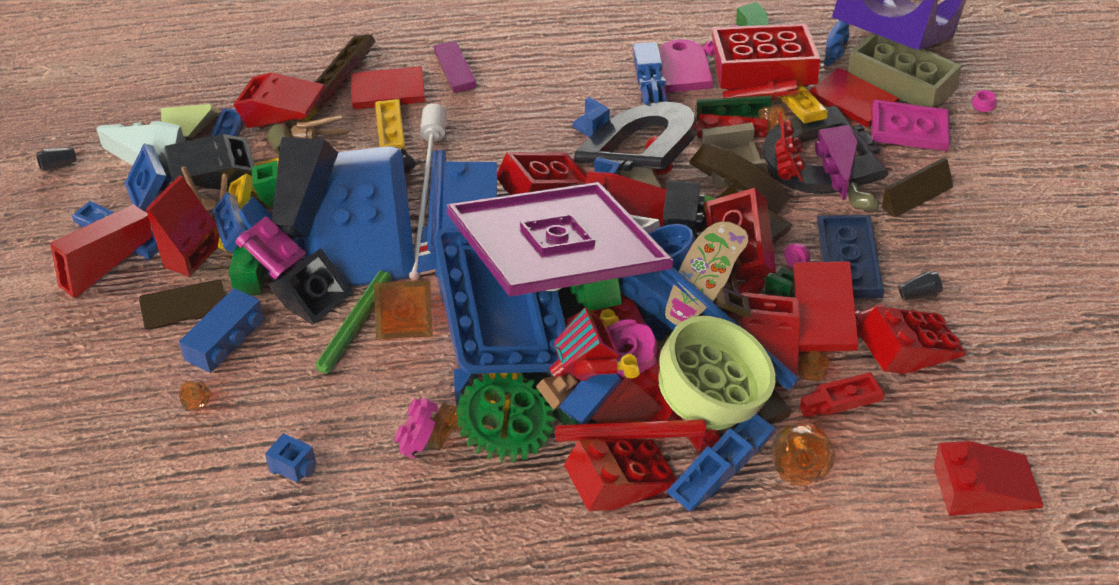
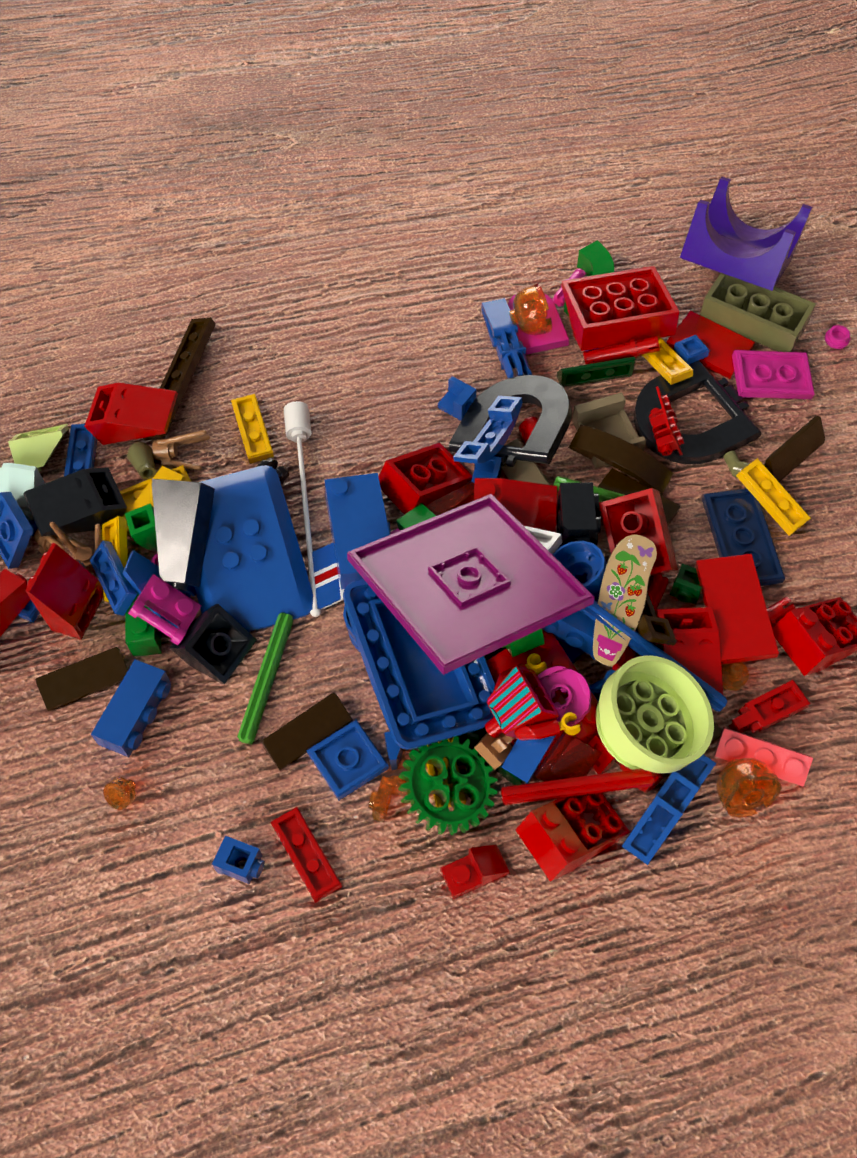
camera: 10 degrees left, 15 degrees up
(357, 466) = (306, 854): none -> red tile
(381, 366) = (306, 731): none -> dark brown slope
(386, 85) = (239, 378): red tile -> none
(403, 309) = (314, 659): clear orange slope -> none
(415, 383) = (347, 759): none -> blue tile
(417, 427) = (360, 810): dark pink plate -> none
(436, 197) = (321, 520): blue axle -> none
(454, 66) = (303, 345): magenta tile -> none
(521, 495) = (475, 870): none -> red slope
(628, 130) = (495, 433): none -> blue slope
(676, 50) = (531, 311): none -> clear orange cylinder
(714, 121) = (592, 390): red hinge -> none
(770, 114) = (636, 379): clear orange tile -> none
(796, 253) = (694, 546): dark pink plate -> none
(831, 97) = (691, 349): none -> blue tile
(836, 39) = (681, 286): blue slope -> none
(838, 153) = (715, 422): magenta slope -> none
(846, 439) = (786, 763): none -> coral plate
(886, 223) = (773, 496): none -> yellow tile
(921, 286) = (821, 568): black cone -> none

